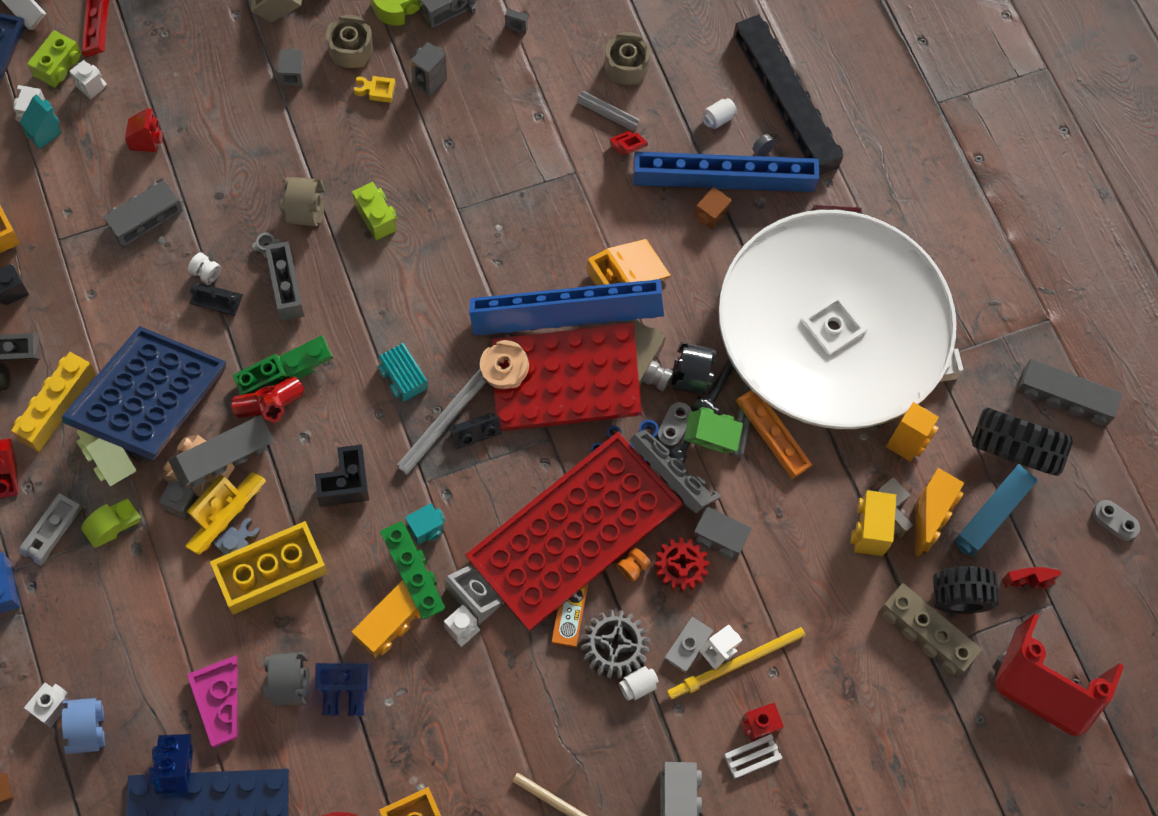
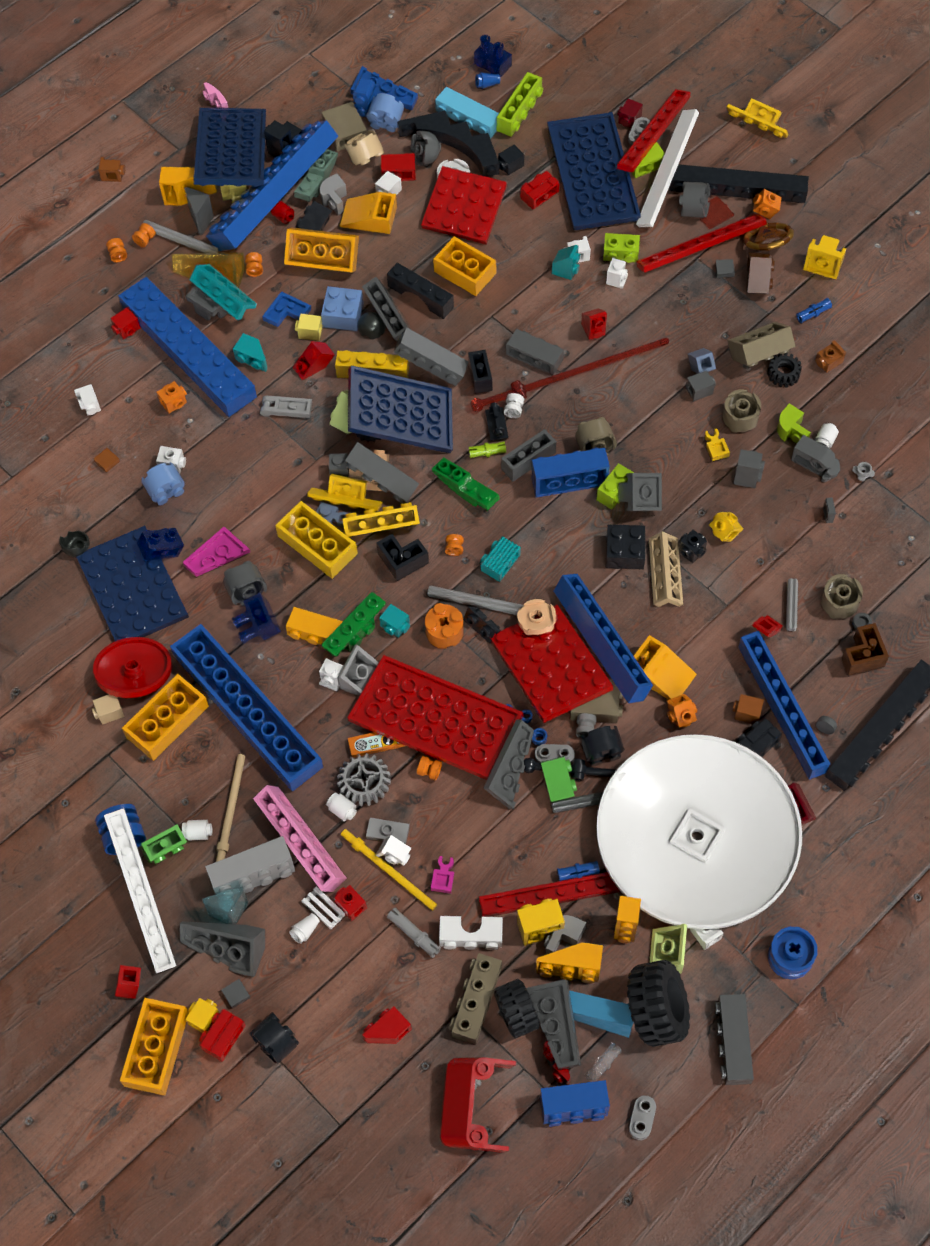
camera: 75 degrees right, 5 degrees down
(88, 326) = (431, 356): none -> dark grey brick
(108, 521) = (304, 434): lime brick -> none
(137, 282) = (480, 371): none -> black brick
(184, 254) = (521, 389): none -> clear red bar
(246, 324) = (487, 449): none -> lime pin
(262, 49) = (701, 360): none -> sand blue brick
(264, 238) = (557, 431): light grey plate -> none
(268, 400) = (434, 486): red piece -> none
(284, 482) = (378, 521): none -> yellow brick
(333, 246) = (569, 472): none -> blue brick
(357, 415) = (454, 545): none -> orange wheel
(406, 185) = (642, 492): none -> dark grey panel
(456, 744) = (247, 707): none -> blue brick
(457, 235) = (625, 546): none -> black brick
(460, 484) = (444, 626): none -> orange brick
(486, 133) = (725, 526): none -> yellow brick
(492, 169) = (692, 546): none -> black brick
(504, 211) = (662, 569): none -> tan fence
(660, 57) = (861, 619): none -> dark grey tile
(661, 746) = (300, 838): none -> bright pink brick
(671, 564) = (438, 805): red gear -> none
(687, 271) = (681, 711): none -> orange brick
(701, 63) = (868, 652): none -> reddish brown brick
(719, 113) = (835, 682): white brick -> none
(721, 534) = (482, 818): dark grey brick -> none
(751, 213) = (761, 737): none -> black brick
(772, 788) = (303, 929): none -> white cone
(774, 434) = (580, 827): orange tile -> none
(774, 607) = (443, 878): none -> dark pink plate
(823, 461) = (578, 871): none -> blue pin
(834, 662) = (420, 938): none -> light grey pin
(835, 506) = (563, 890): none -> red tile
(860, 584) = (488, 936): none -> white arch
(929, 741) = (388, 1029): none -> red slope
(953, 407) = (669, 945): none -> yellowish green slope
(998, 553) = (557, 1021): none -> dark grey wing
(1000, 295) = (792, 952): none -> blue wheel
(1046, 532) = (603, 1062): none -> clear pin
(1088, 577) = (574, 1103): none -> blue brick

